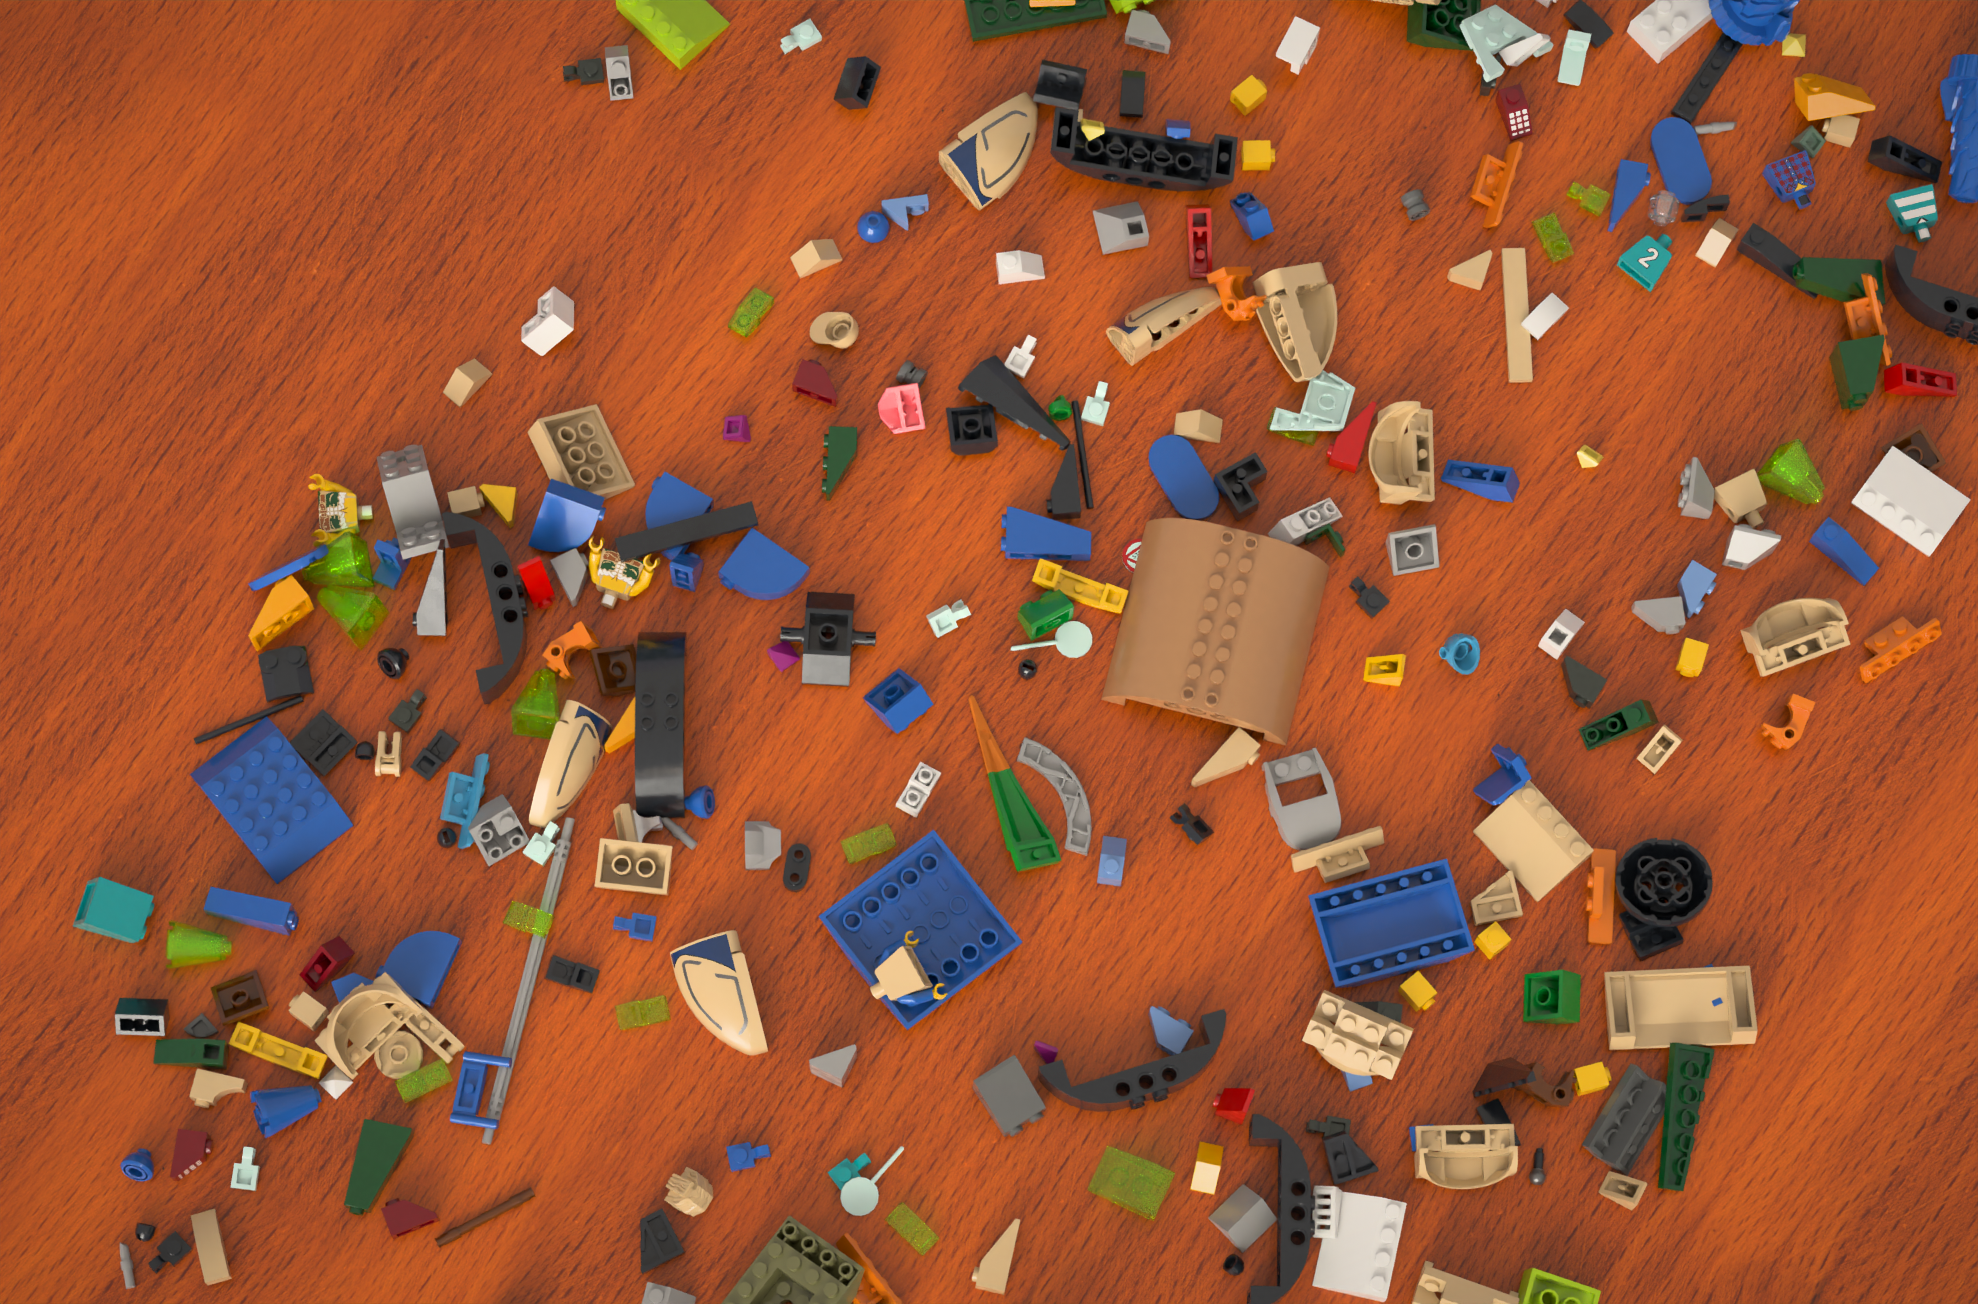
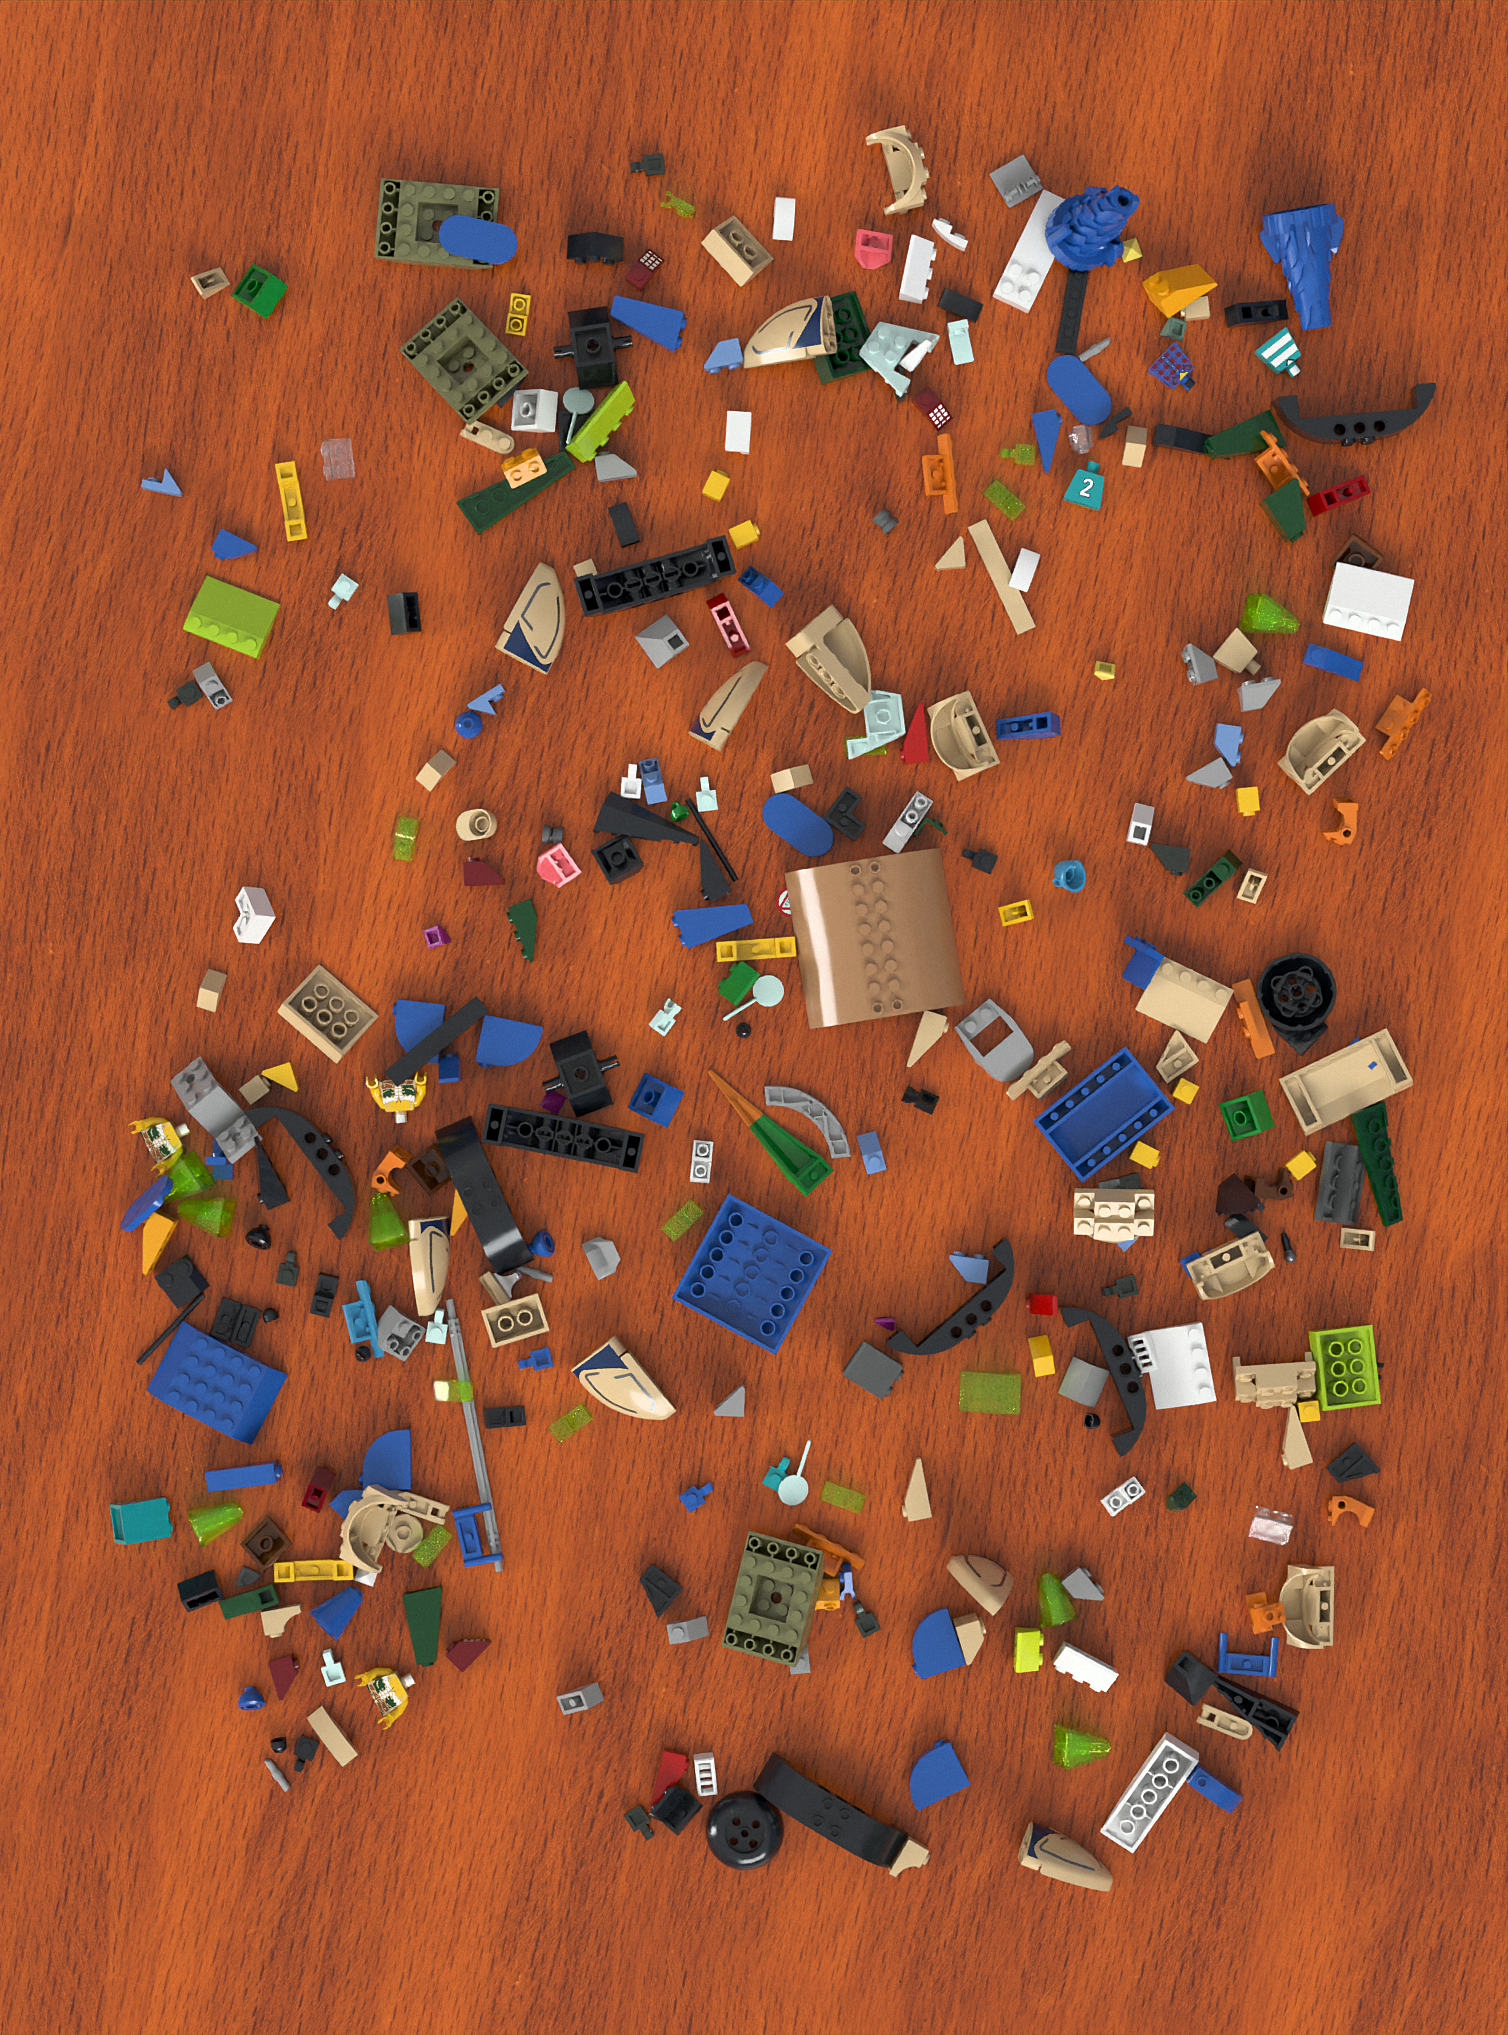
camera: 10 degrees left, 15 degrees up
(296, 1222) = (388, 1691): none -> torso
(308, 1011) = (321, 1531): tan brick -> none
(388, 763) = (295, 1311): tan piece -> none
(457, 1232) = (539, 1605): reddish brown piece -> none
(536, 583) = (342, 1133): red slope -> none
(566, 517) = (340, 1071): blue brick -> none
(572, 573) = (362, 1109): light grey slope -> none
(689, 1192) = (666, 1543): tan hair -> none
(775, 690) = (563, 1137): none -> black slope
(797, 867) = (637, 1261): black plate -> none
(903, 975) = (755, 1319): tan torso -> none
(1019, 267) = (598, 709): white slope -> none
(1045, 364) = (652, 780): none -> medium blue slope
(1060, 85) = (565, 547): black bracket -> none
(1092, 128) = (607, 577): light yellow slope -> none
(1177, 128) = (673, 541): blue slope -> none
(1230, 289) = (774, 661): orange tile -> none
(1346, 1158) = (1143, 1305): black wing -> none
(1413, 550) = (999, 808): light grey slope -> none

